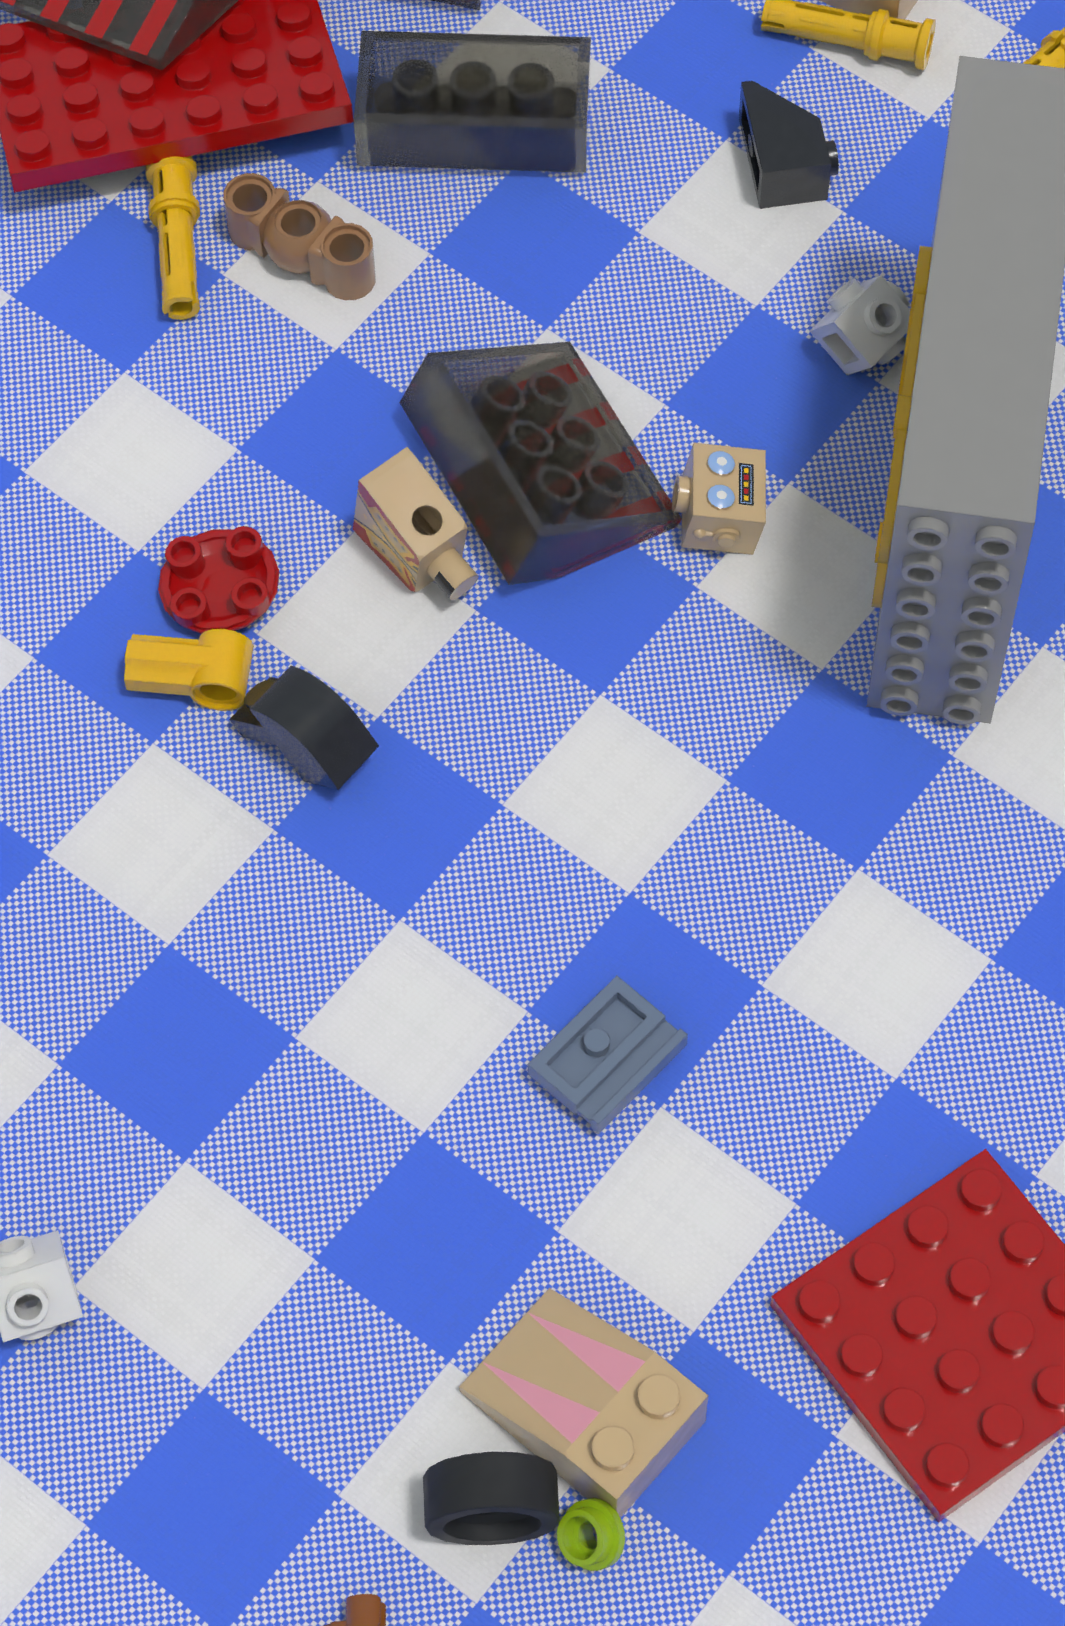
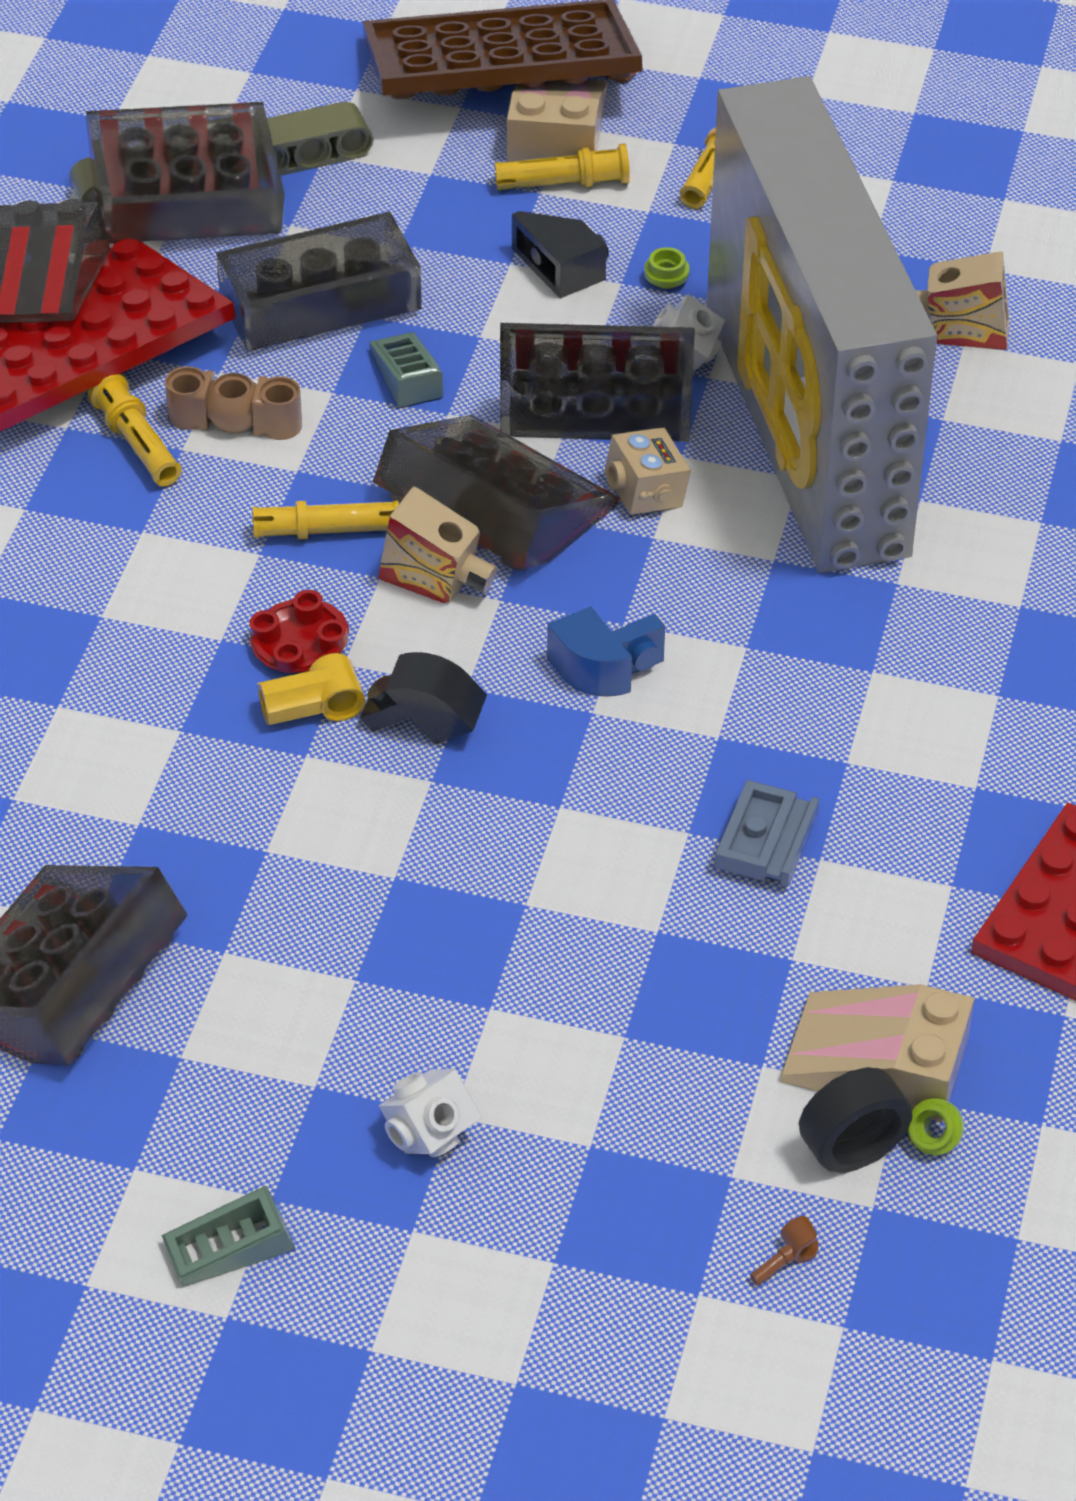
camera: 25 degrees left, 15 degrees down
(301, 425) = (321, 519): none -> yellow pin
(524, 282) = (408, 369): none -> sand green slope
(536, 744) = (602, 659): none -> blue brick
(711, 367) = (595, 380): none -> clear smoke slope
(901, 200) = (666, 268): none -> lime plate

